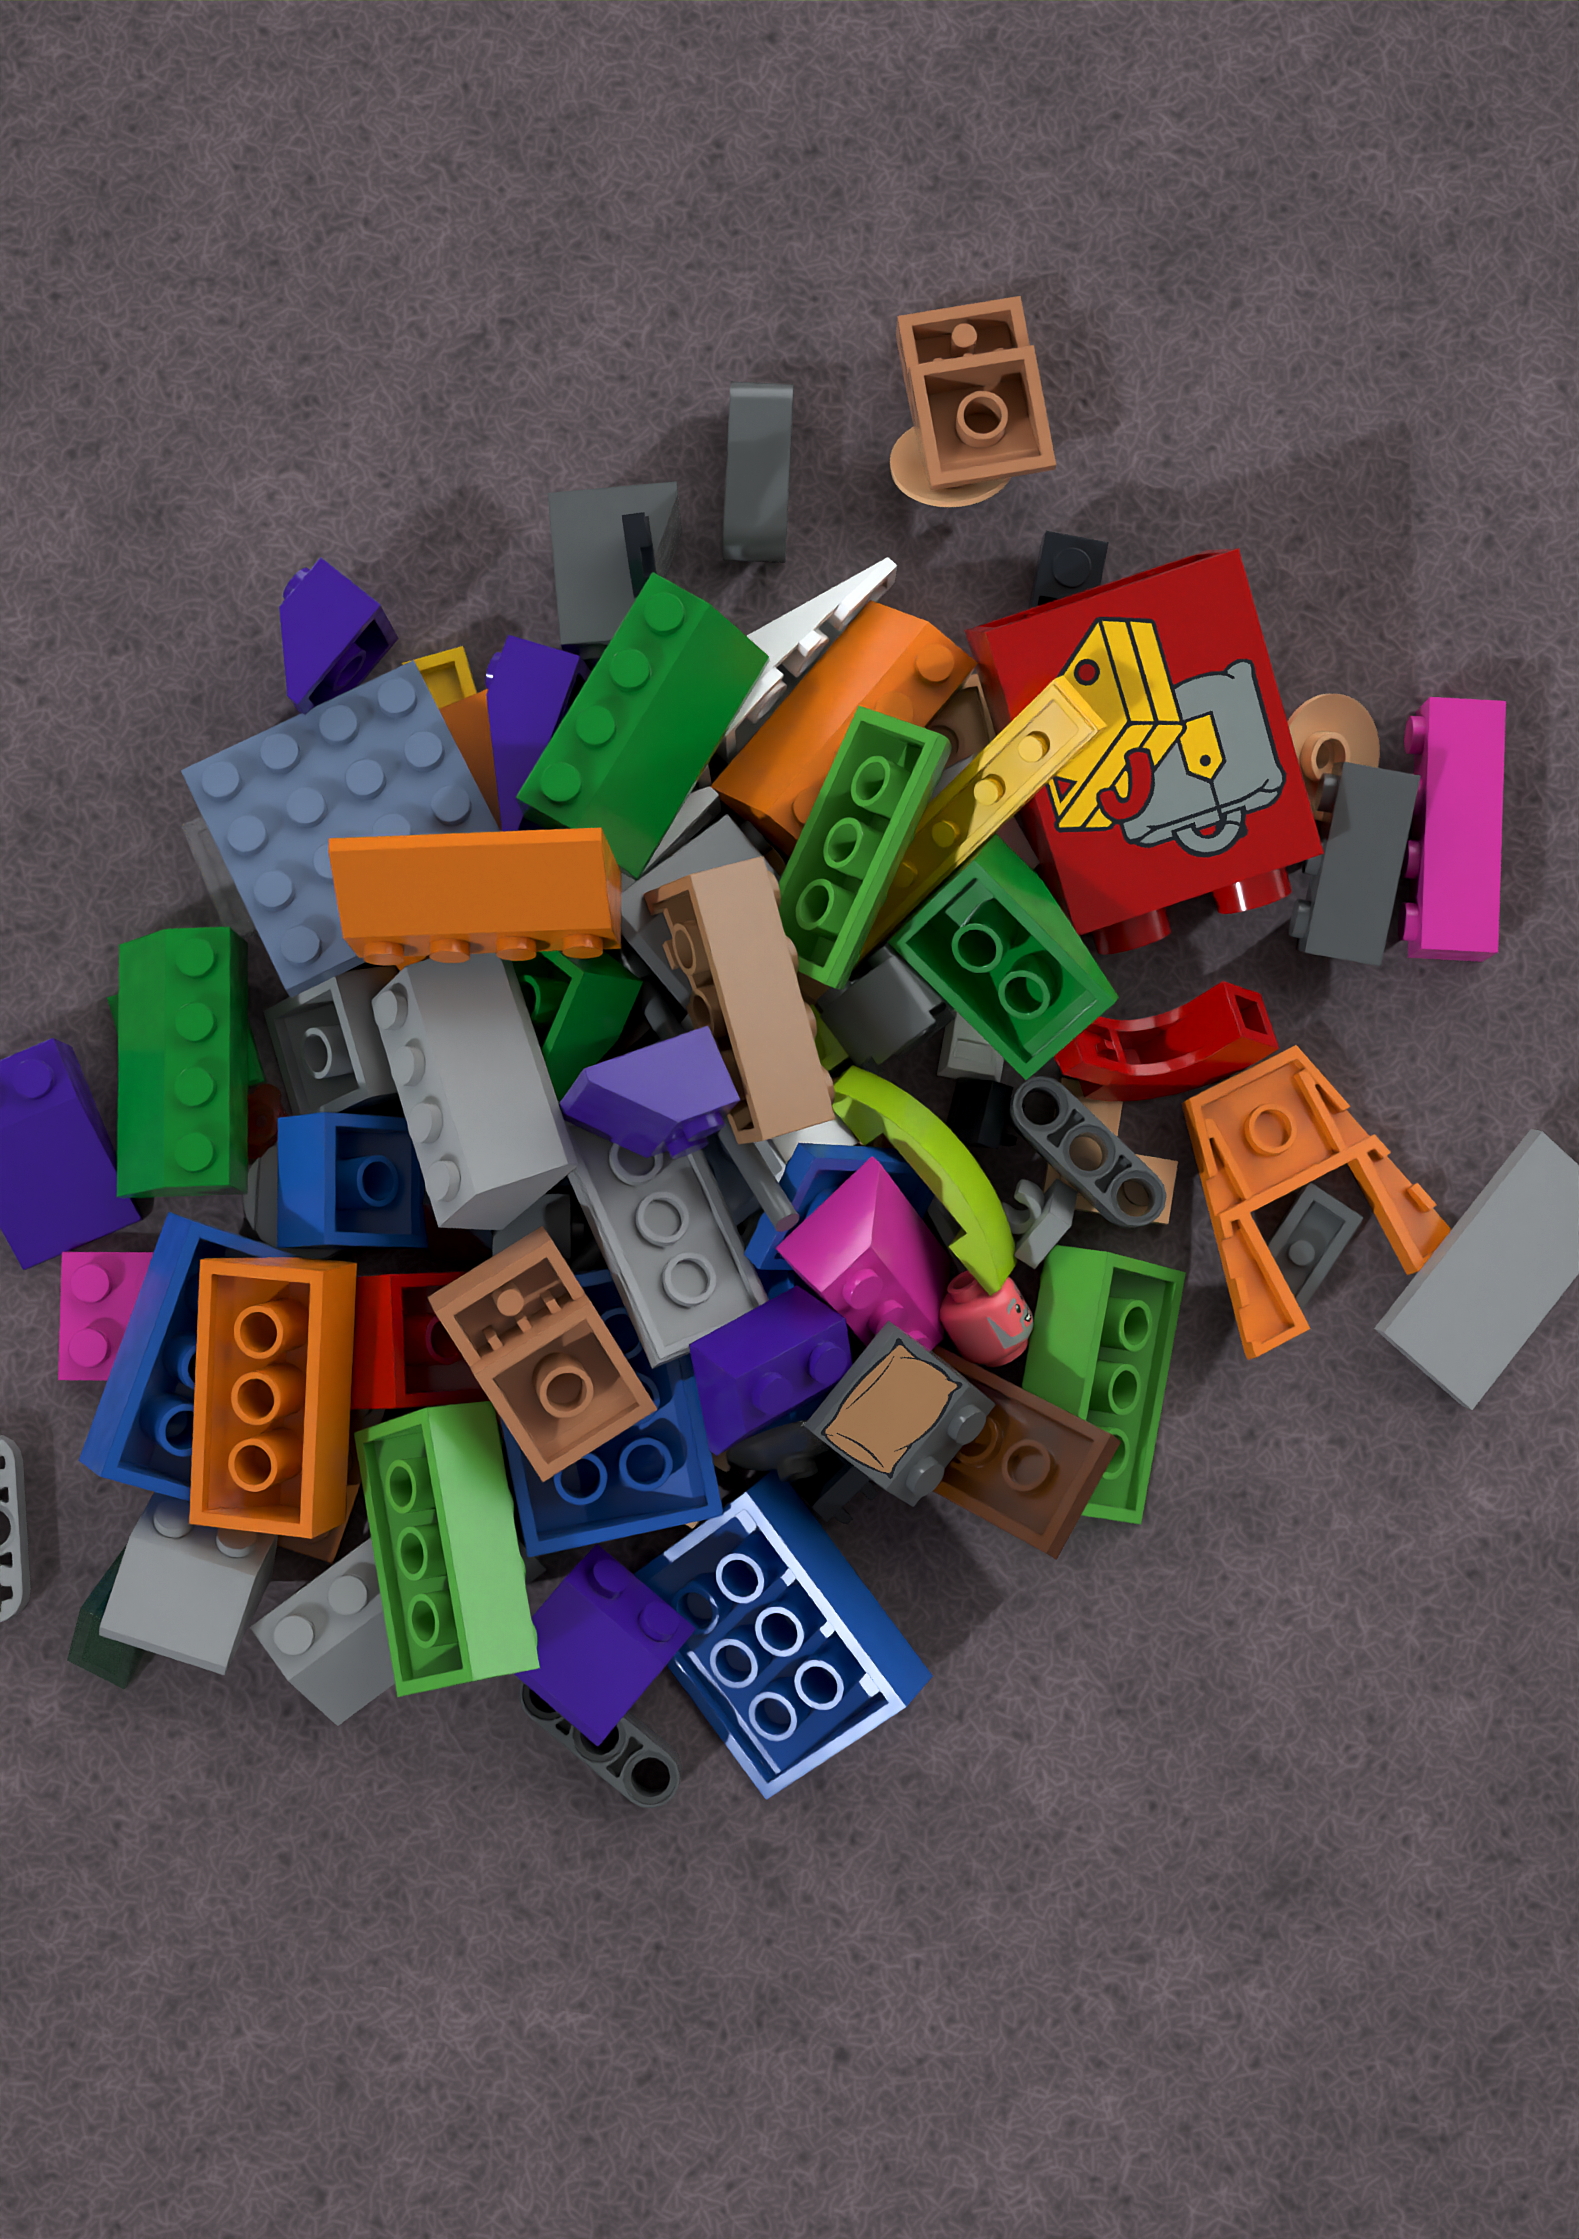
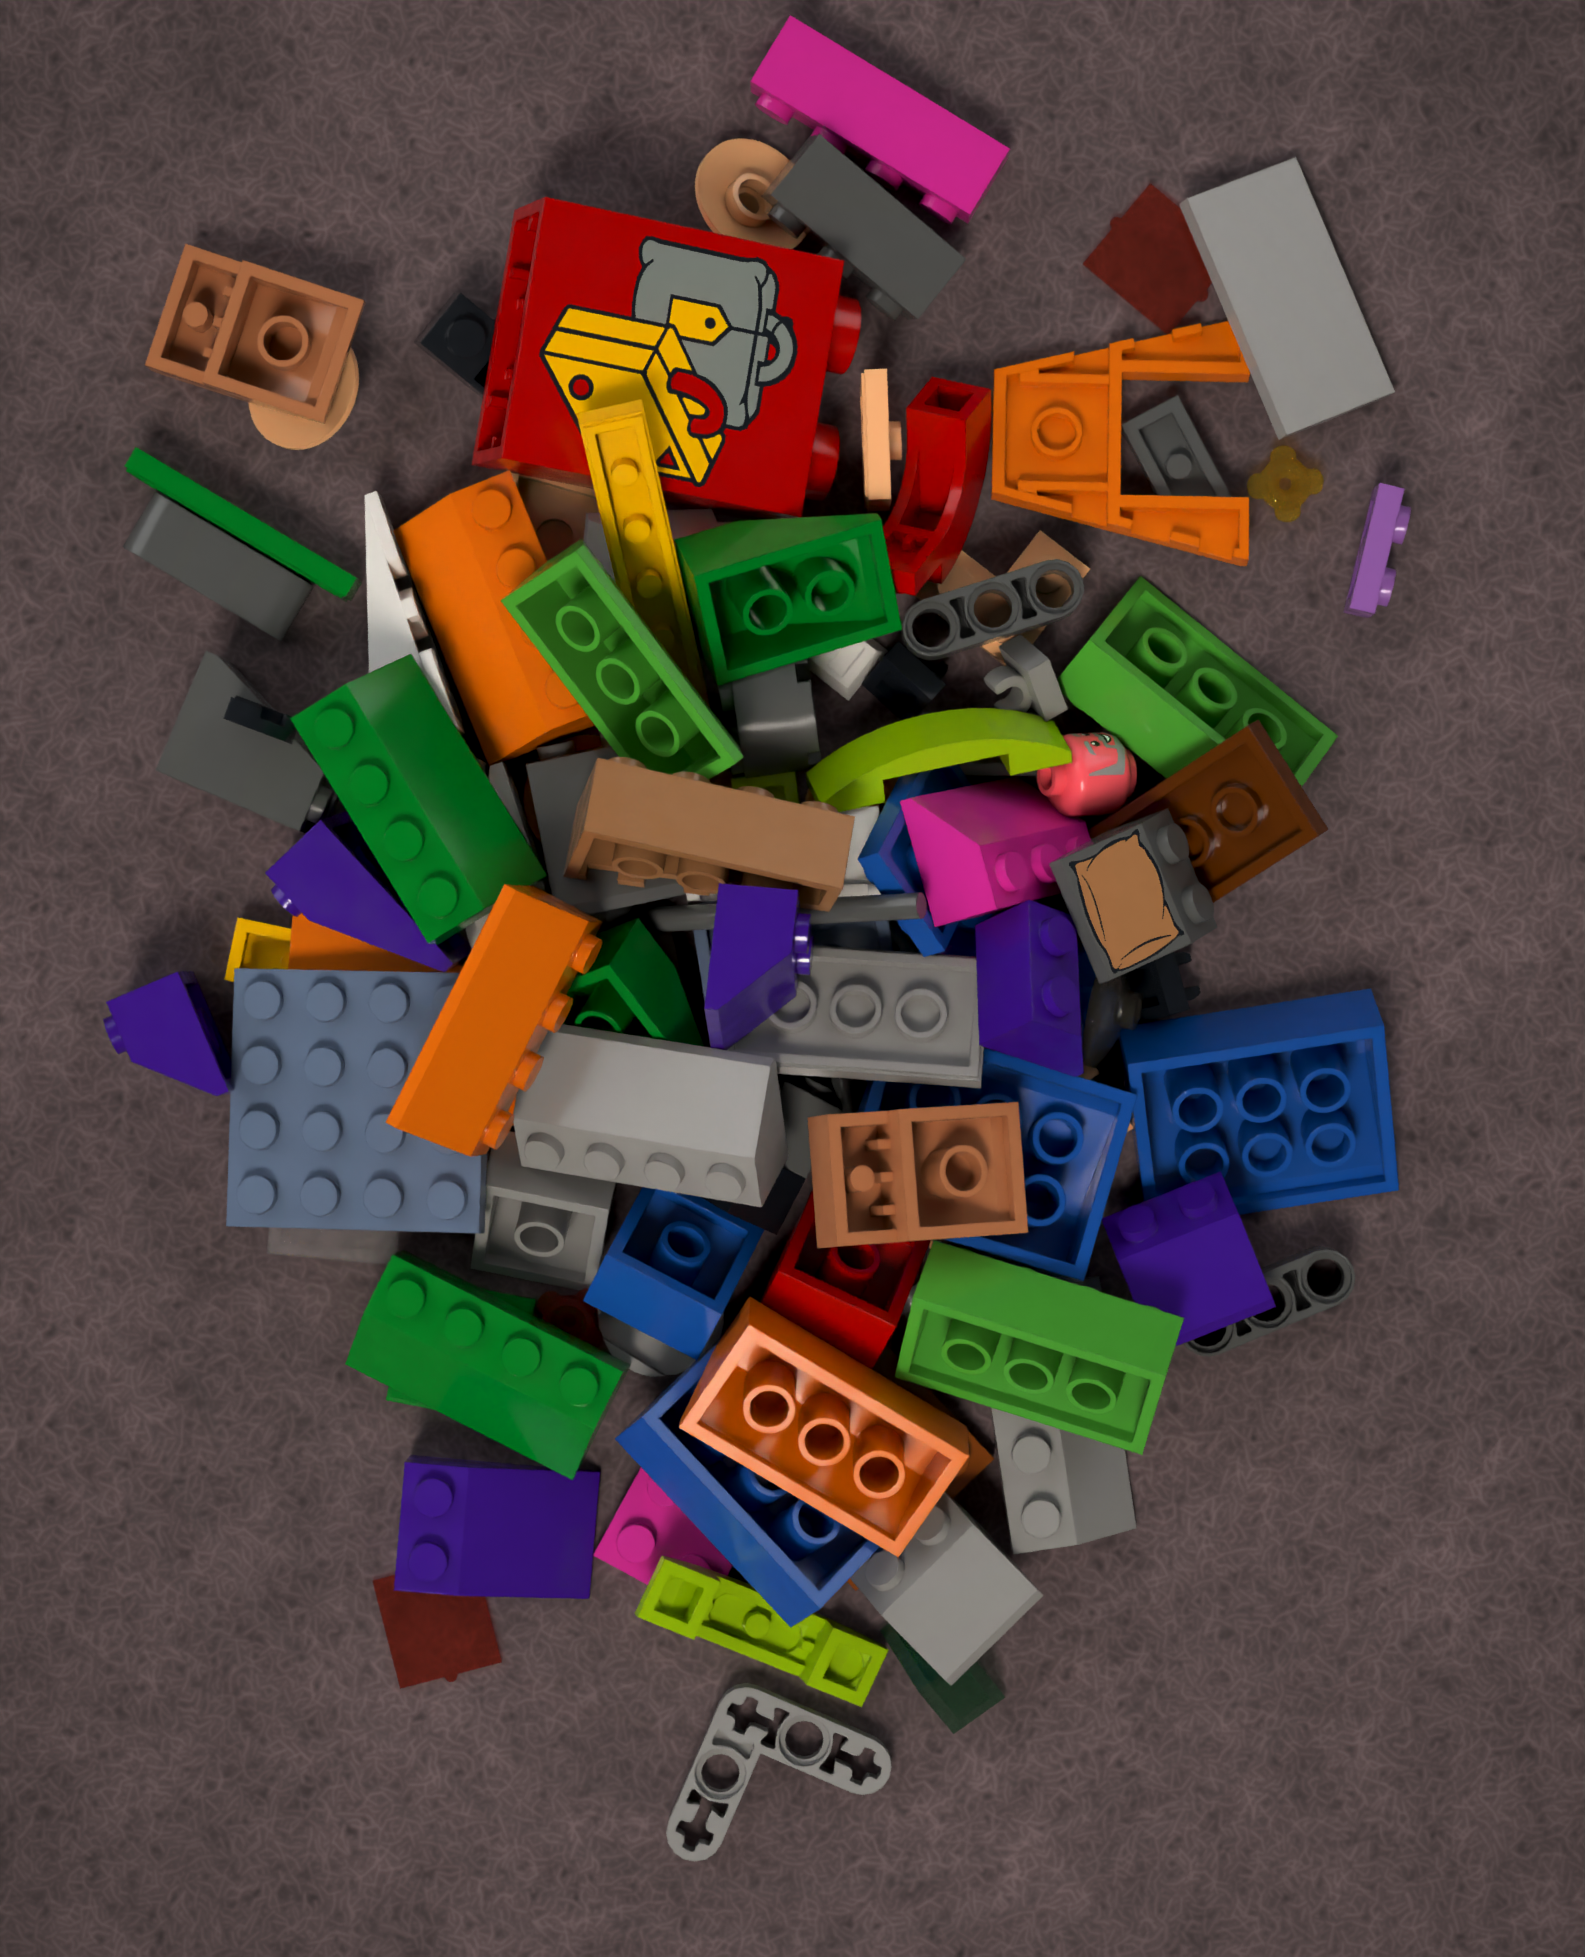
camera: 60 degrees left, 5 degrees up
(68, 1387) = (738, 1618): none -> lime slope
(804, 472) = (242, 525): none -> green tile
(1181, 973) = (879, 440): none -> light nougat plate
(1320, 1364) = (1303, 484): none -> clear yellow plate
(1351, 1464) = (1384, 525): none -> medium lavender plate
(1465, 1135) = (1152, 261): none -> clear red piece

